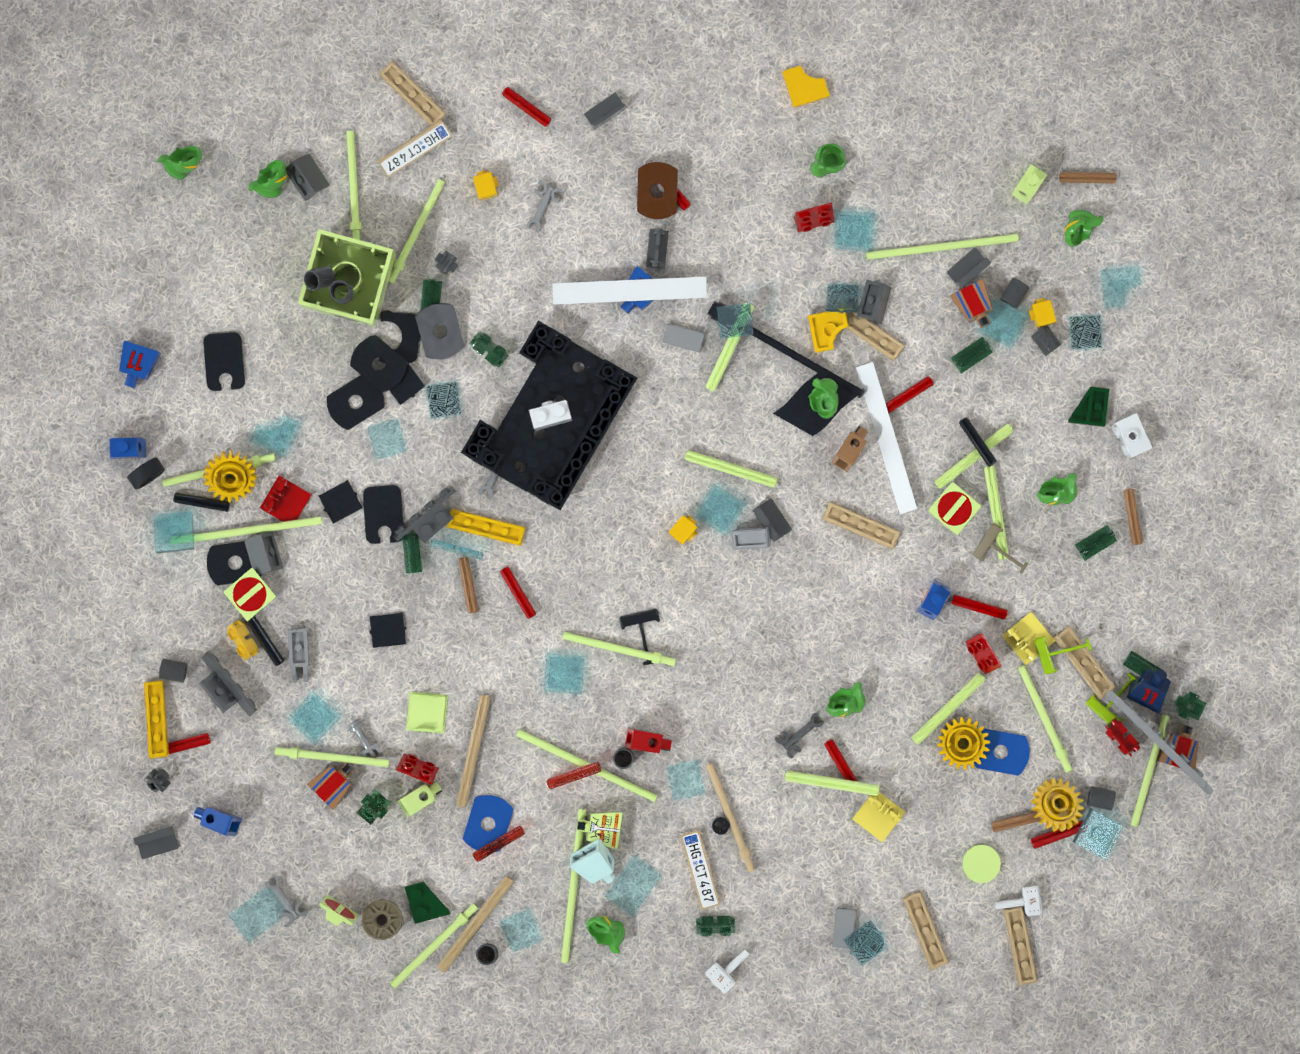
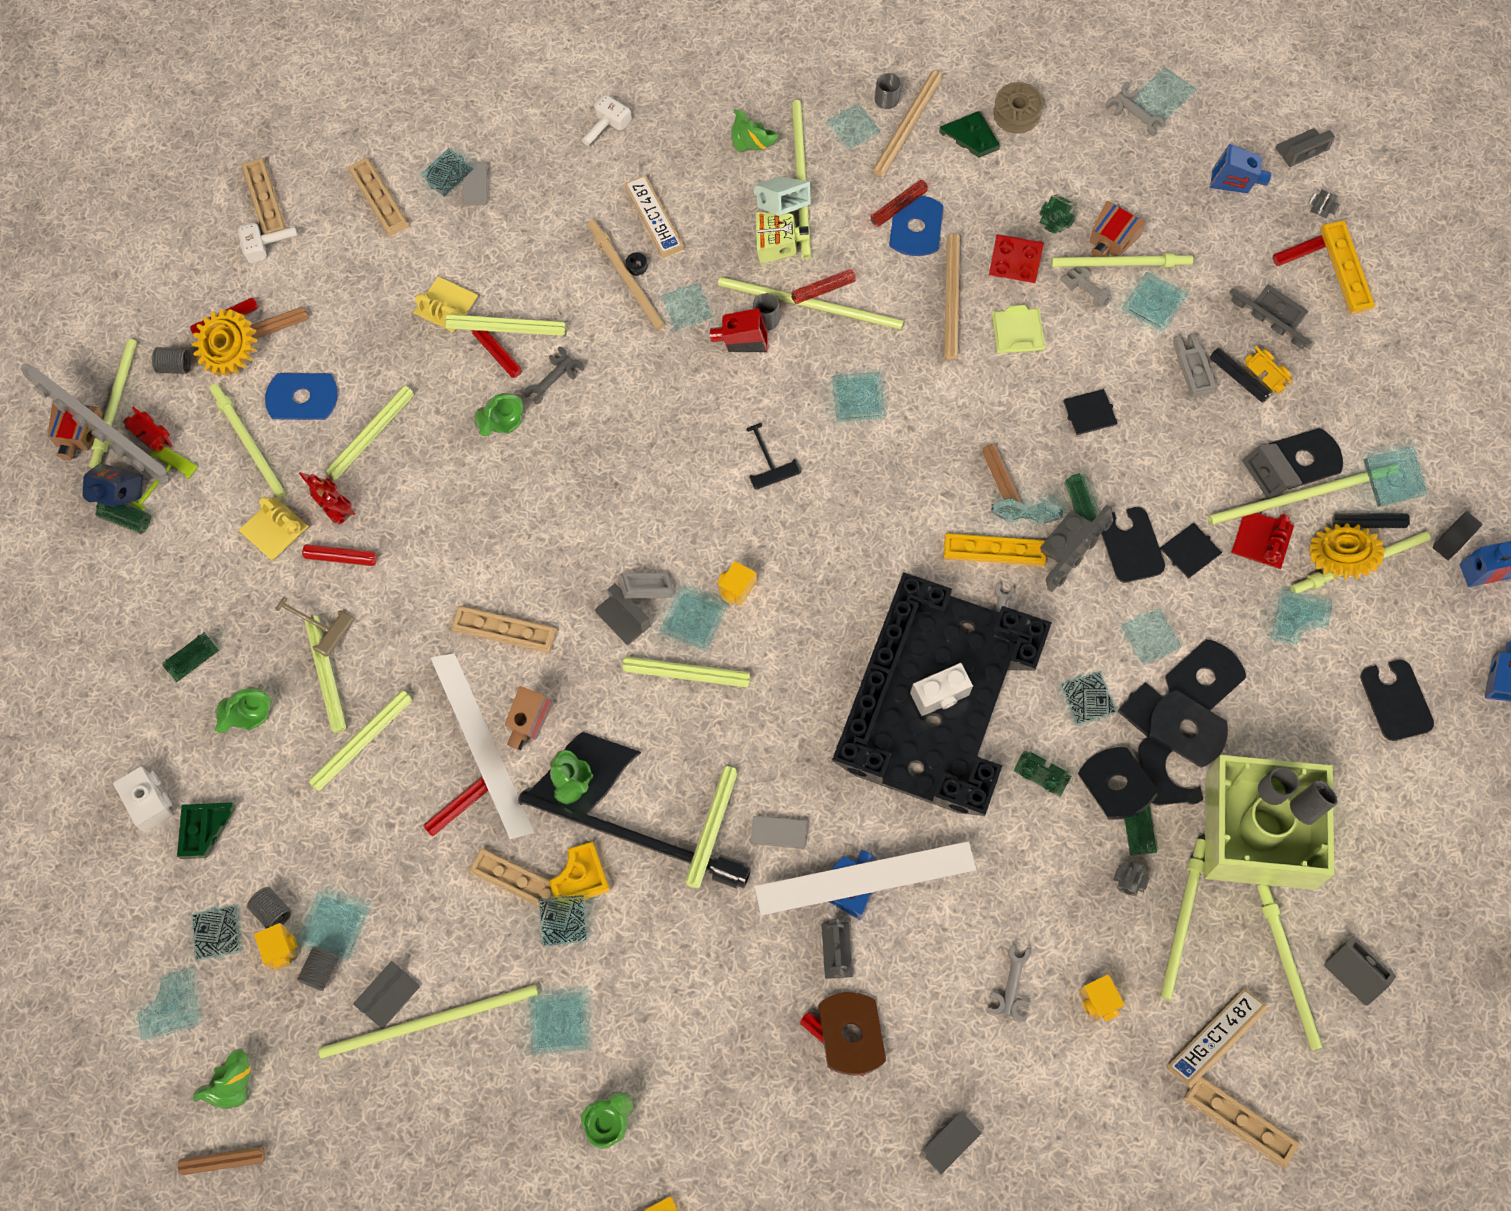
camera: 170 degrees right, 20 degrees down
(173, 670) = (1344, 321): dark grey piece -> none
(249, 594) = (1276, 420): piece -> none
(270, 180) = (1413, 953): bright green hair -> none
(337, 912) = (1071, 101): yellowish green piece -> none
(411, 803) = (1011, 221): yellowish green torso -> none
(461, 919) = (926, 123): yellowish green bar -> none
(518, 592) = (936, 479): red axle -> none
(526, 106) = (1068, 1130): red axle -> none
(633, 886) = (730, 189): clear light blue piece -> none
(654, 657) = (746, 430): yellowish green bar -> none
(706, 927) = (634, 158): clear green hinge -> none
(735, 320) = (709, 857): clear light blue piece -> none
(814, 217) = (604, 1032): red hinge -> none
(874, 301) = (518, 923): dark grey panel -> none
(934, 600) = (398, 547): blue torso -> none
(954, 508) = (380, 666): piece -> none
(968, 755) = (346, 378): yellow gear -> none
(972, 355) = (373, 874): clear green hinge -> none
(974, 303) = (373, 942): torso -> none
(977, 441) = (355, 755): black axle -> none
(981, 863) = (316, 273): yellowish green tile -> none
(1029, 184) = (304, 1135): yellowish green torso -> none
(1045, 655) = (249, 508): lime piece -> none
(1084, 663) = (200, 511): tan tile -> none
(1098, 833) = (174, 322): clear light blue tile -> none
(1133, 518) = (141, 697): medium nougat axle -> none
(1196, 709) = (60, 477): clear green brick -> none

